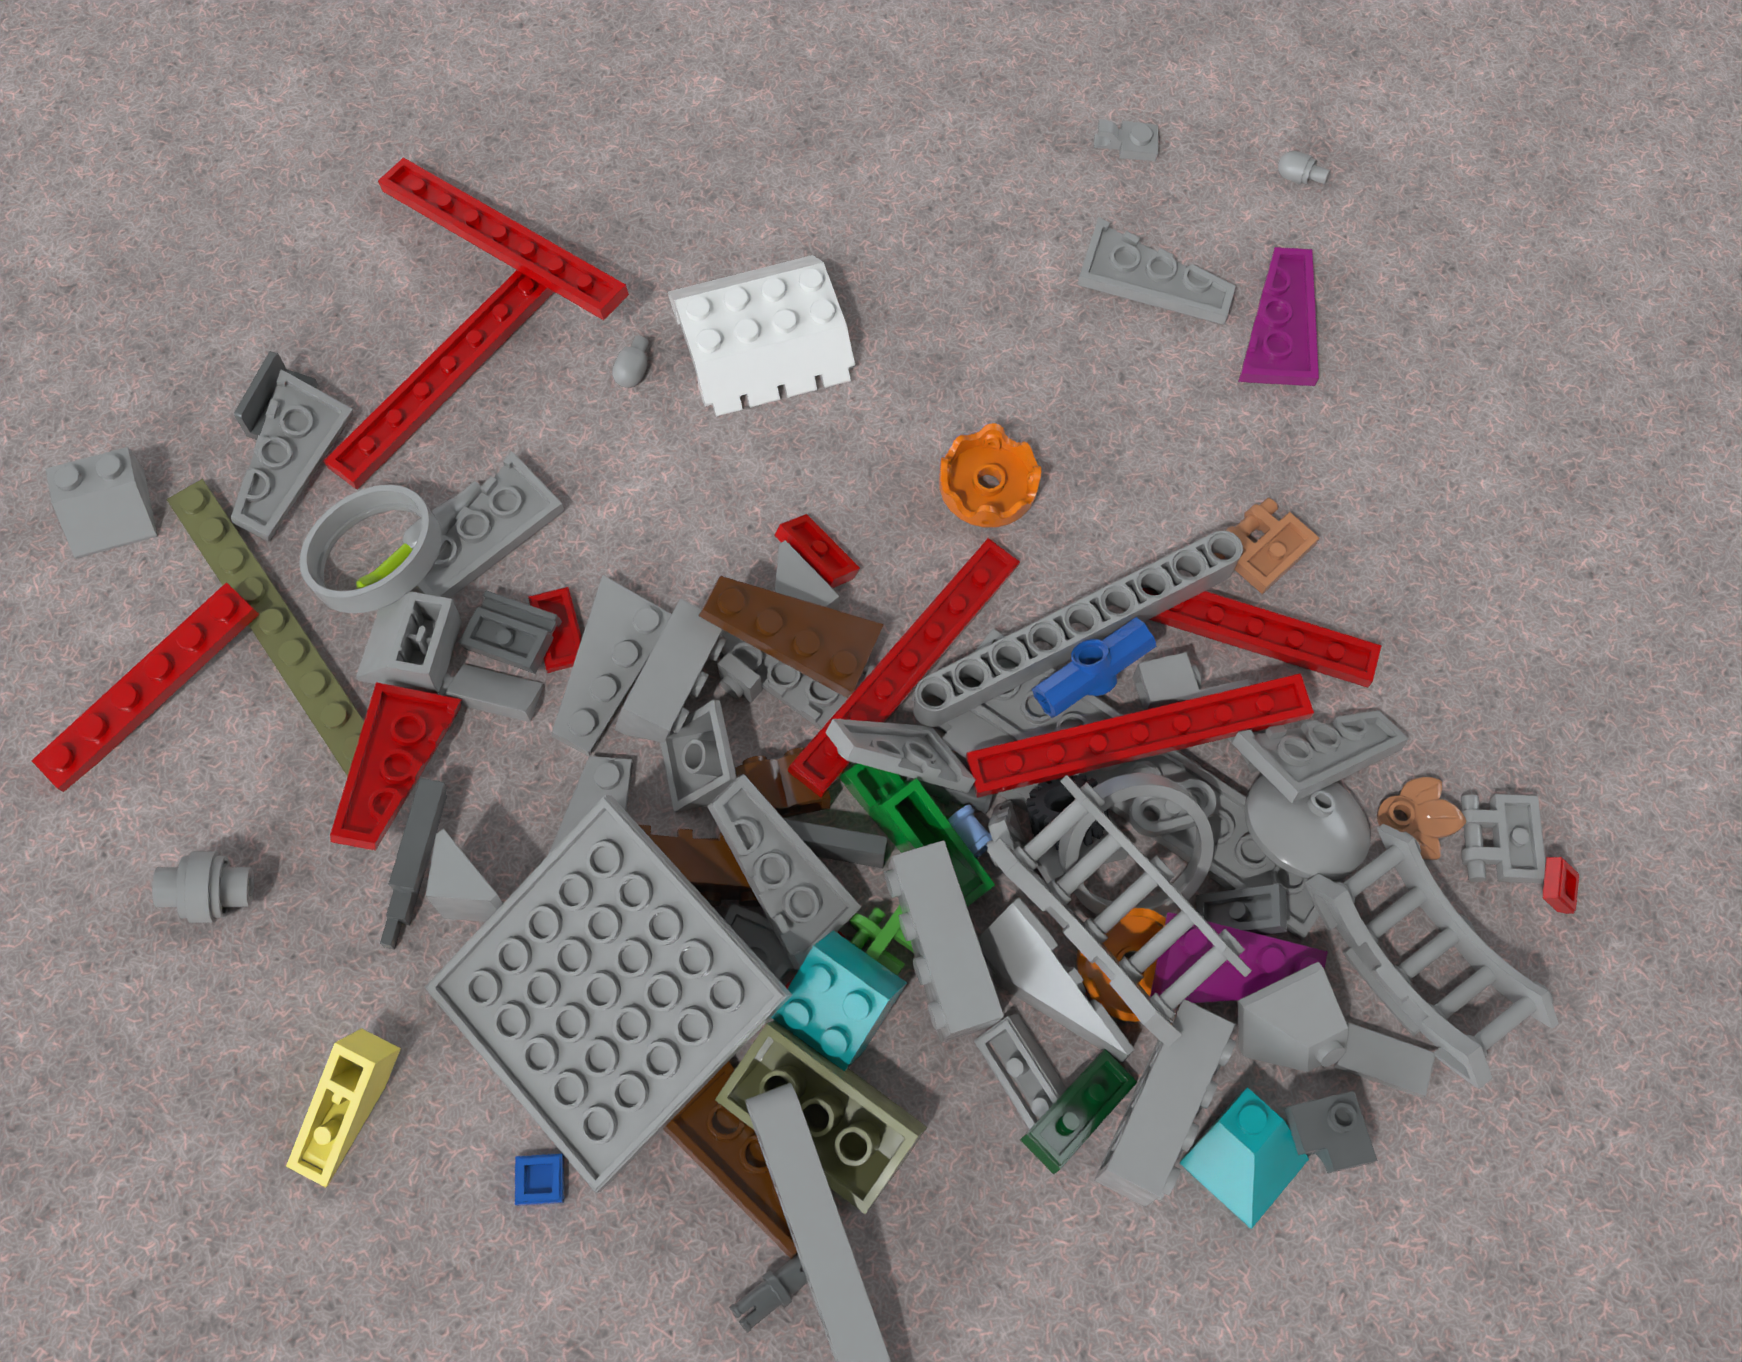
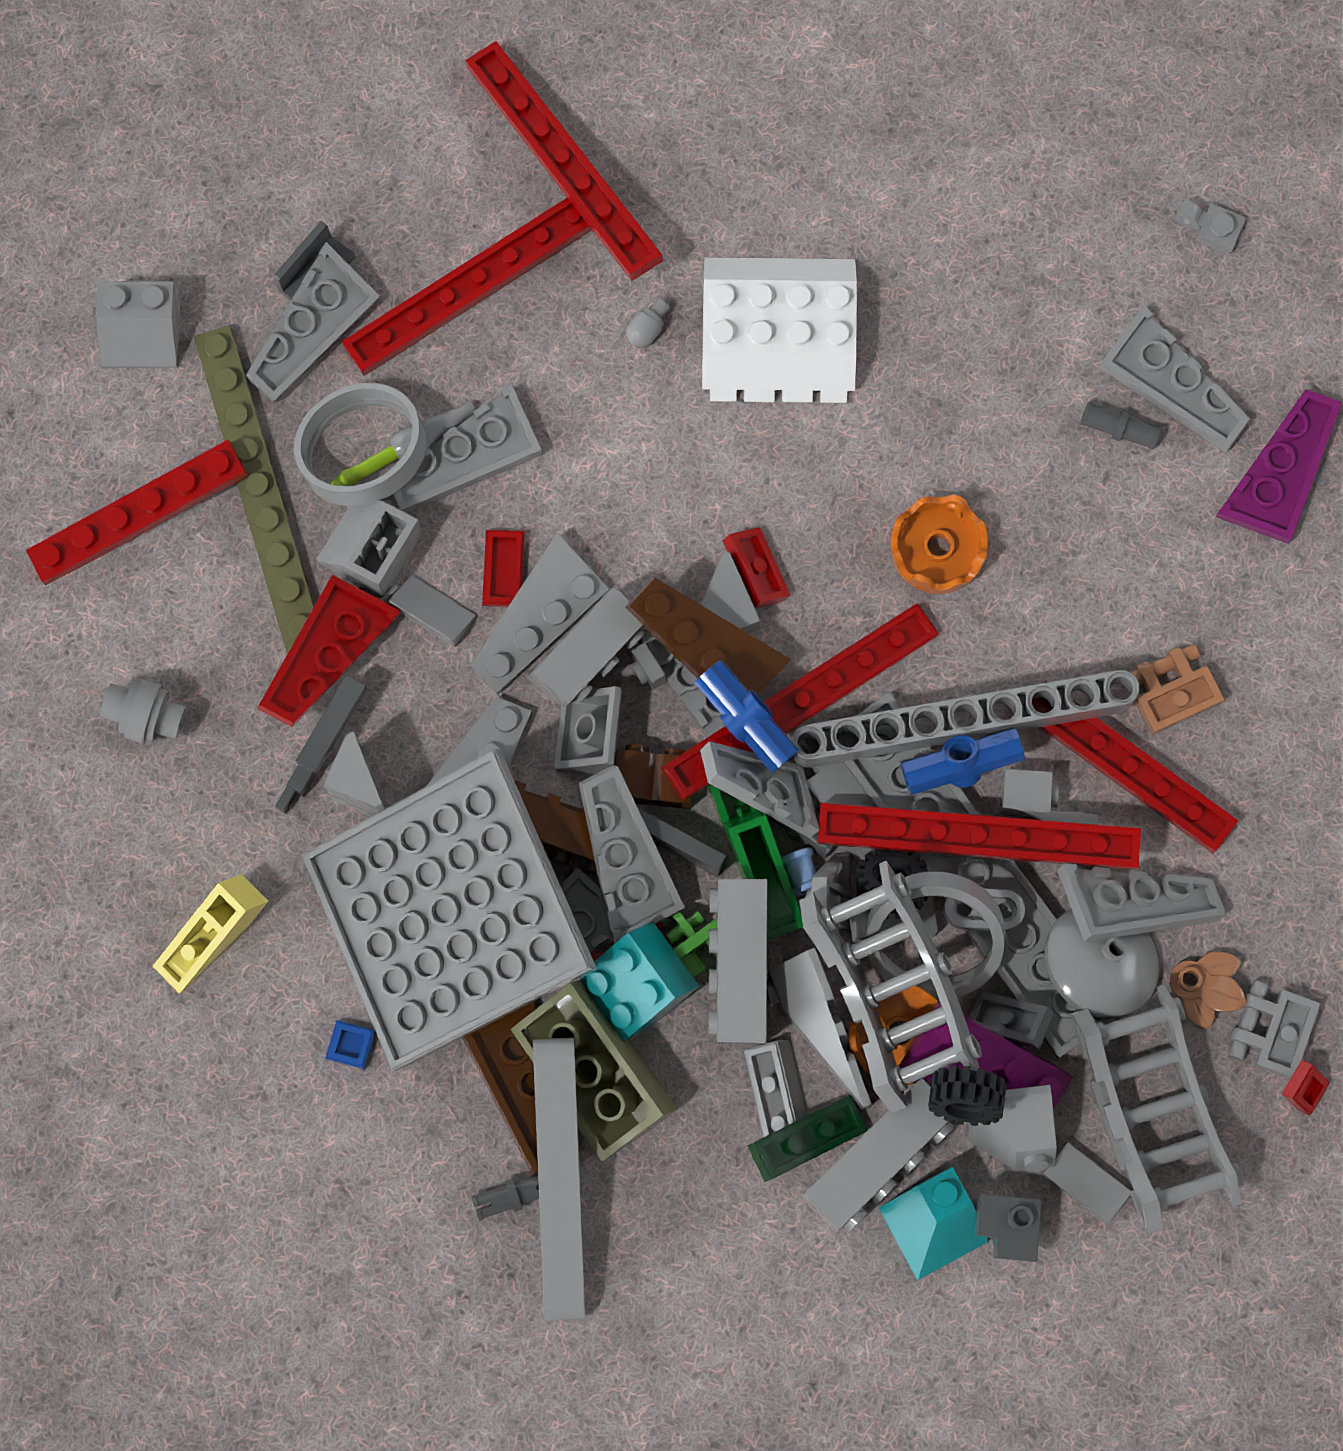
camera: 25 degrees right, 10 degrees up
(510, 632) = (460, 560): dark grey plate -> none
(861, 684) = (746, 716): none -> blue piece
(1118, 326) = (1120, 425): none -> dark grey pin
(1245, 997) = (967, 1095): none -> black tyre

